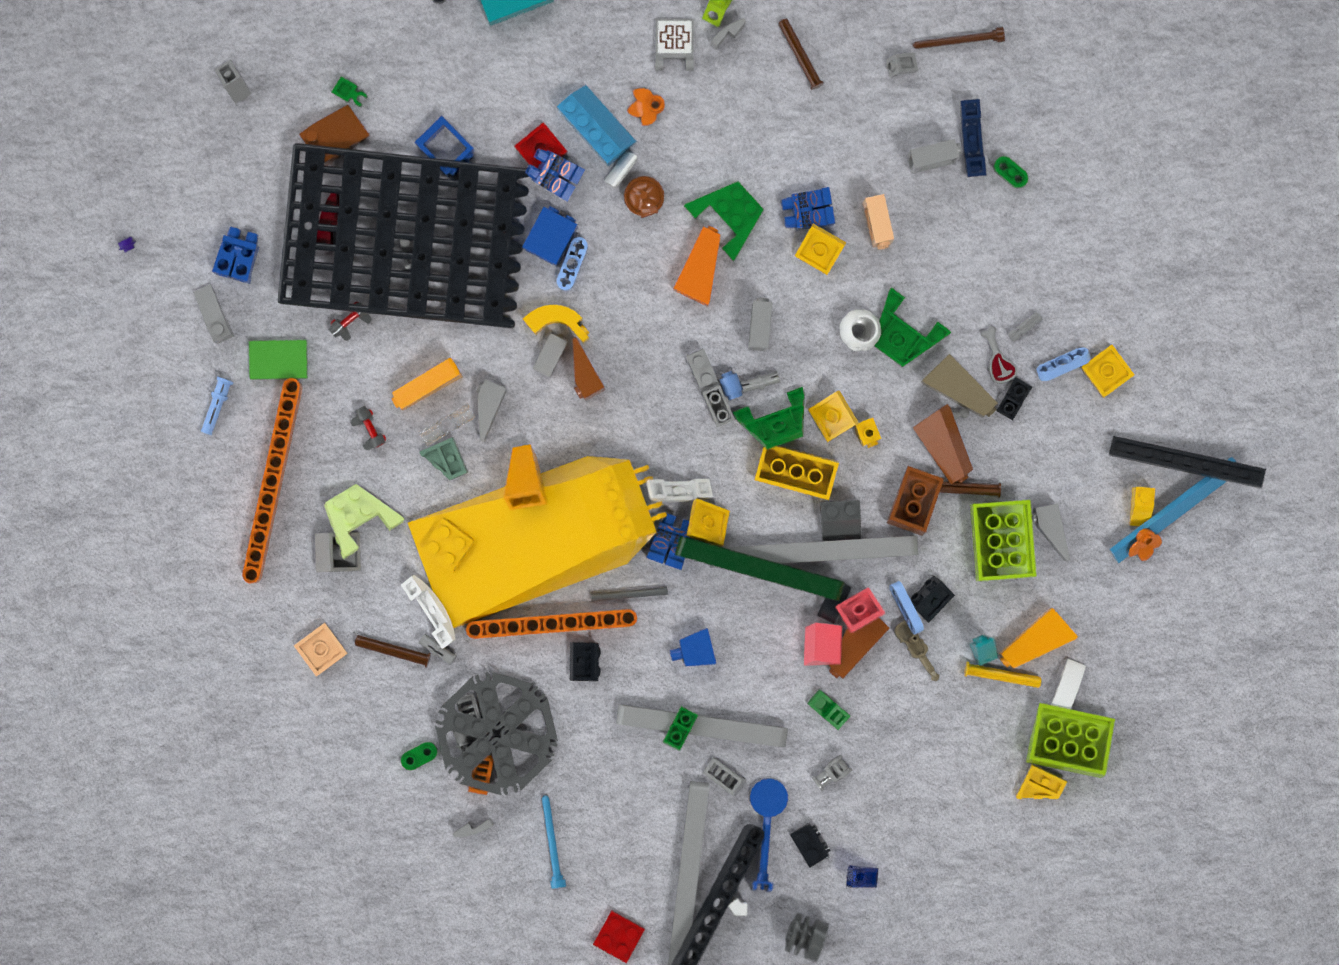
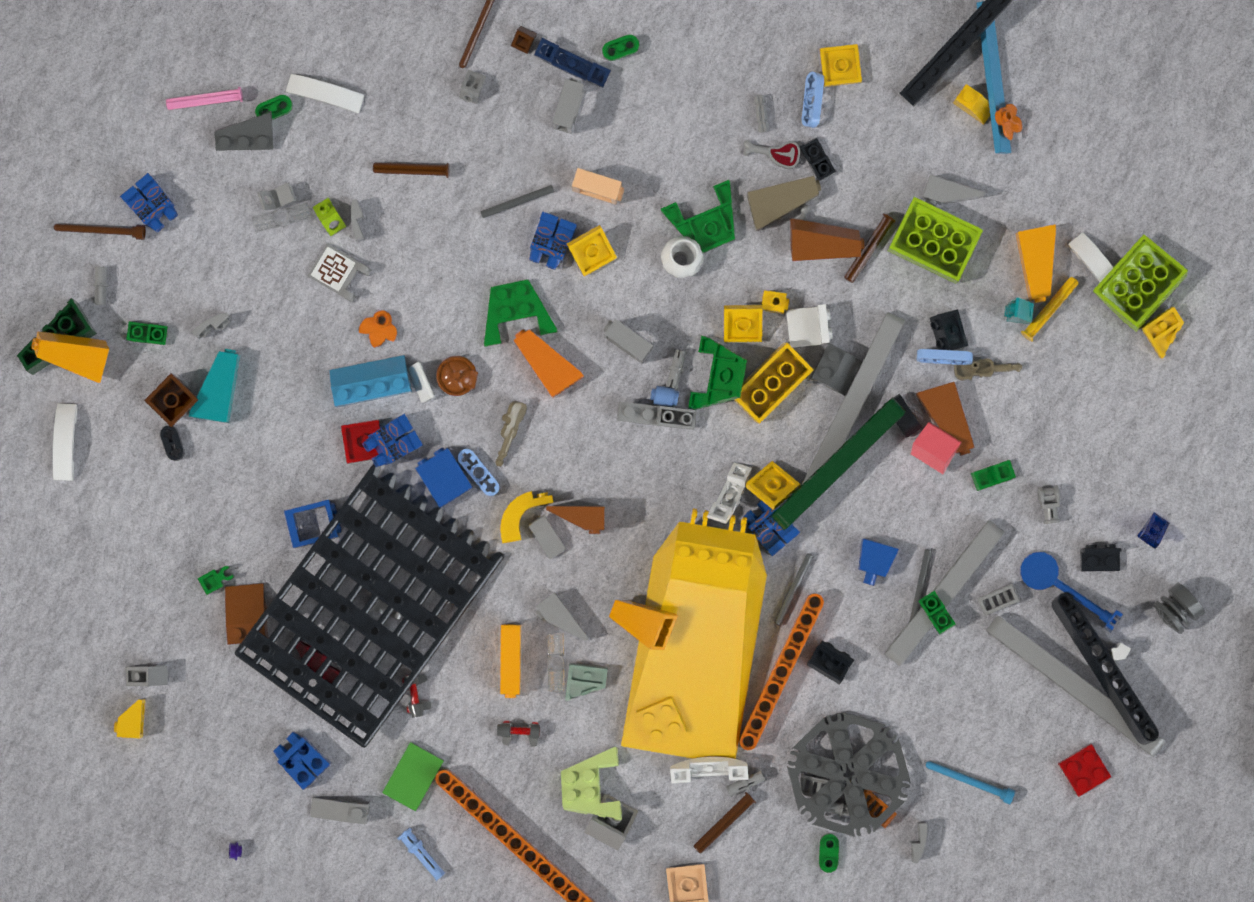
camera: 60 degrees left, 0 degrees up
(186, 91) = (131, 722): none -> yellow slope
(636, 265) = (513, 417): none -> dark tan piece
(699, 701) = (921, 582): none -> dark grey bar
(824, 160) = (517, 201): none -> dark grey bar
(860, 610) = (925, 398): coral slope -> none
(864, 474) = (809, 326): none -> white bracket
(915, 501) = (857, 295): dark orange slope -> none
(969, 85) = (523, 39): none -> reddish brown slope

